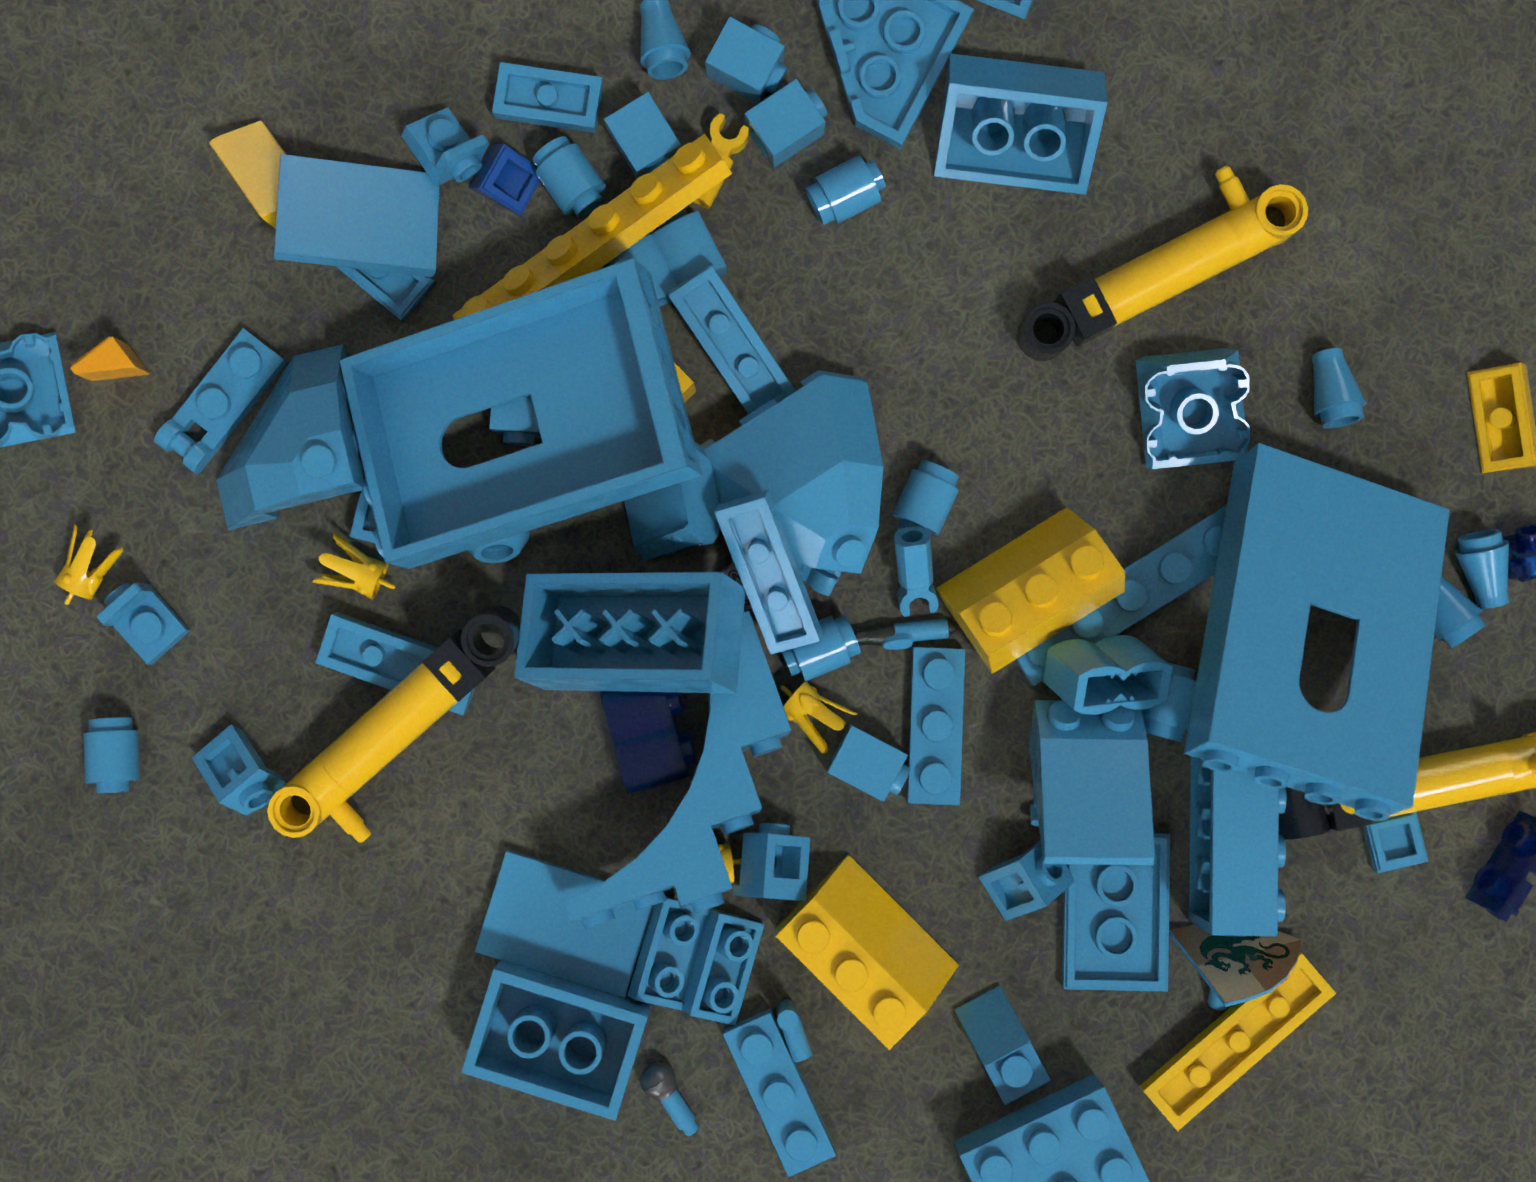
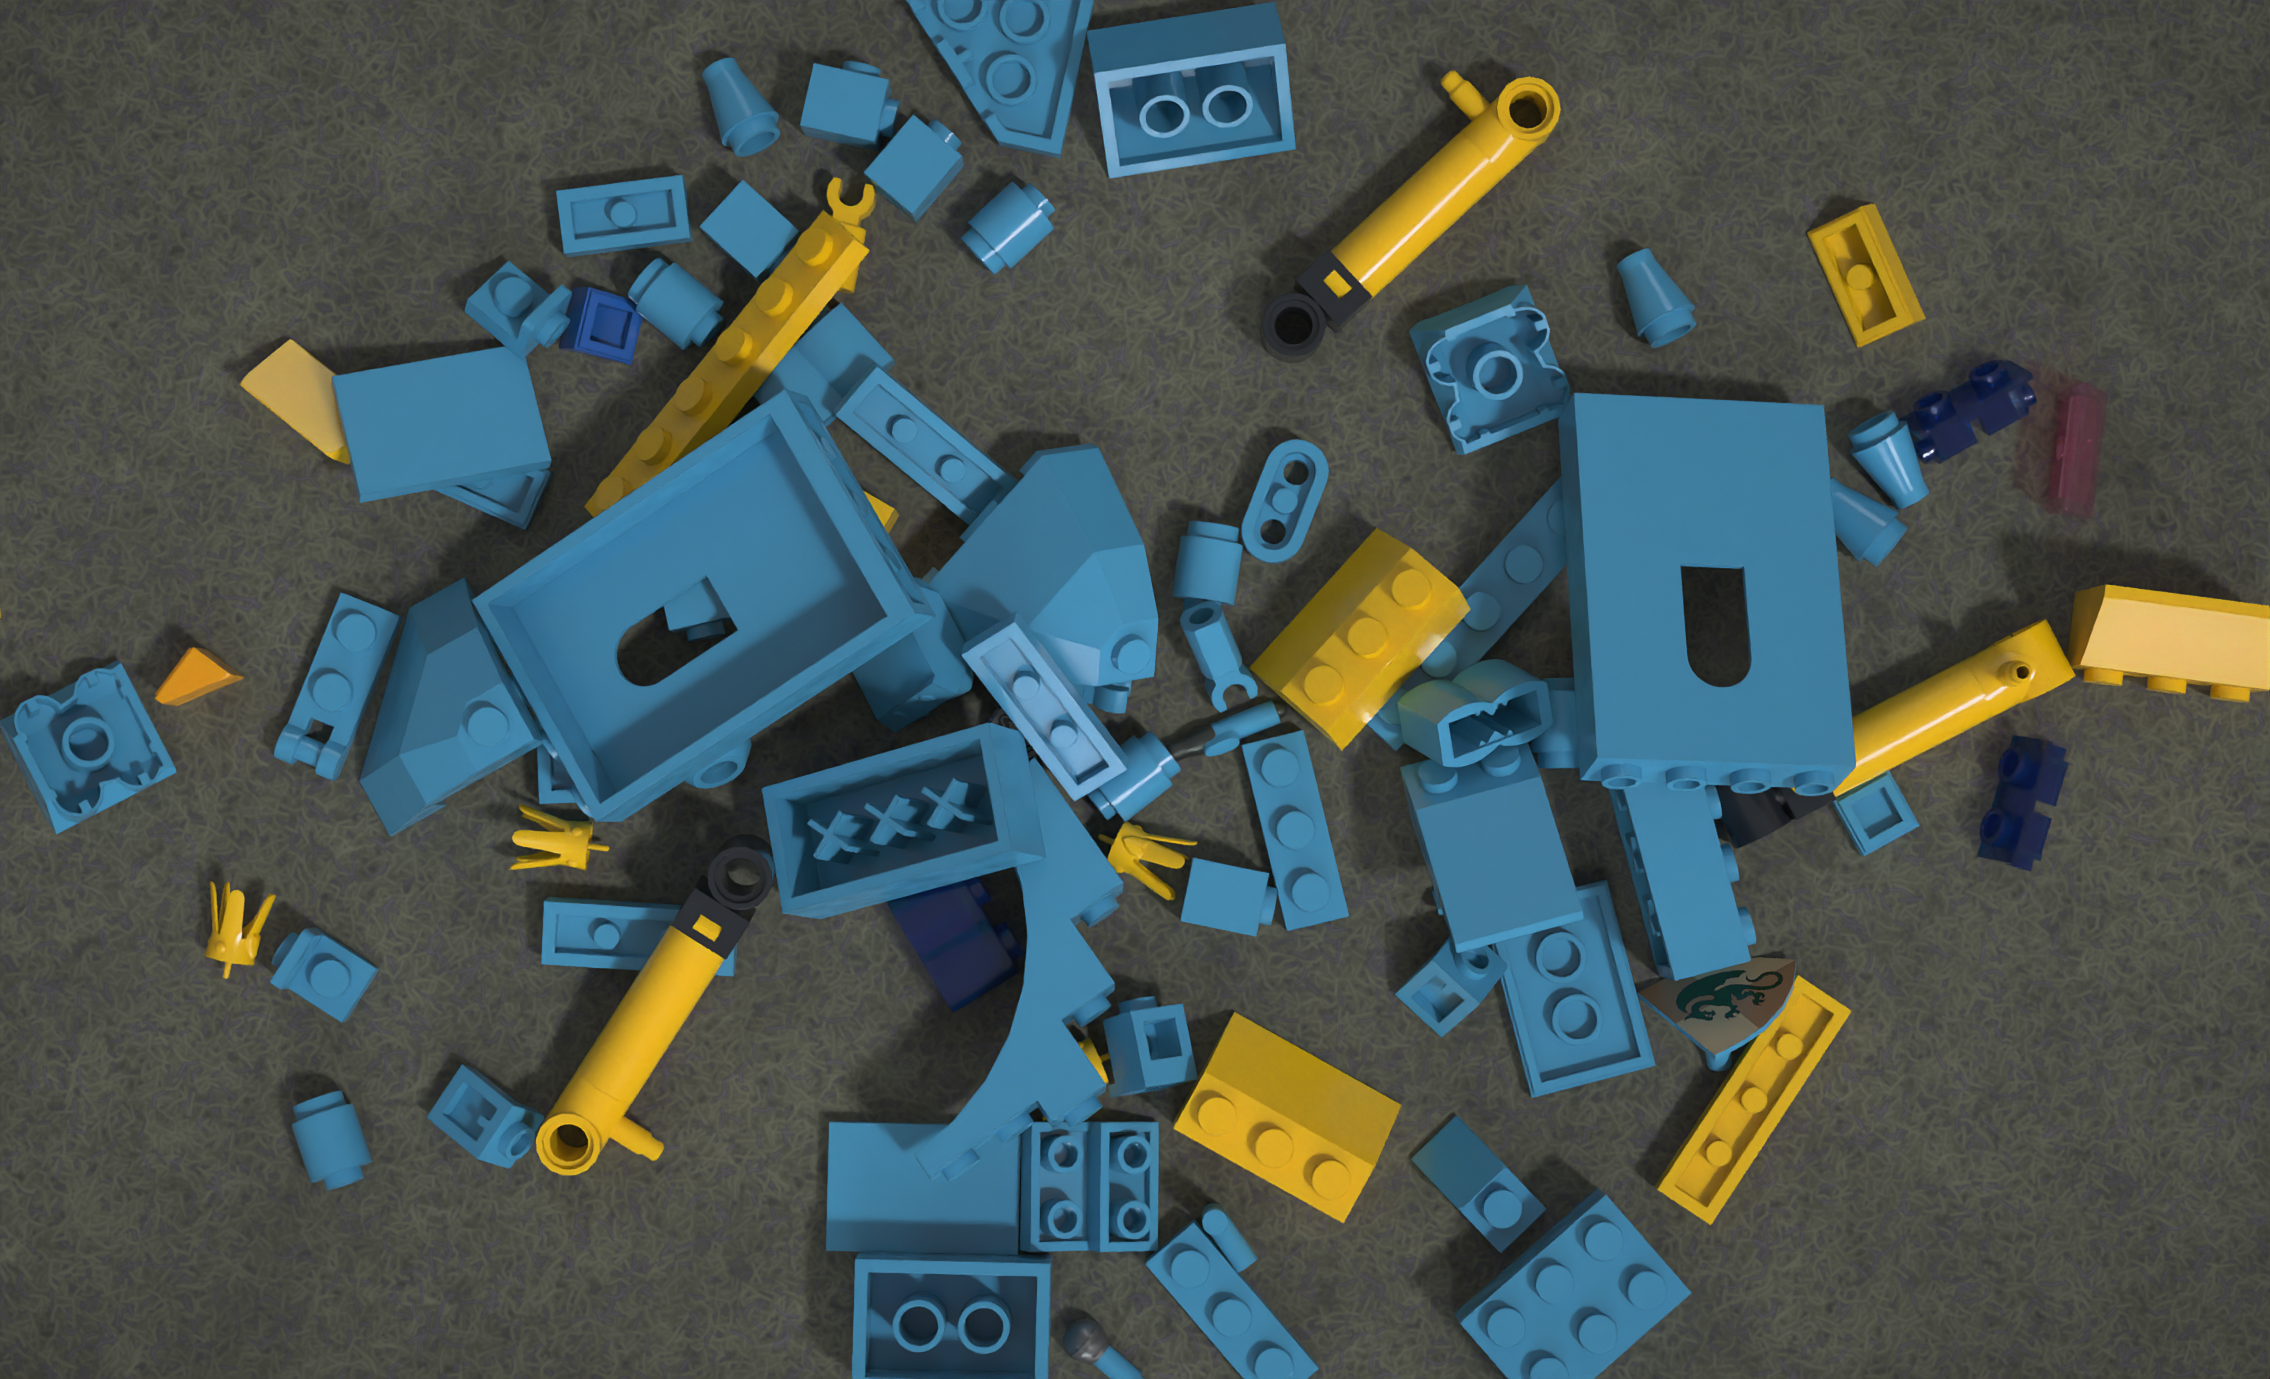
camera: 10 degrees left, 0 degrees up
(1000, 466) = (1284, 502): none -> dark azure plate

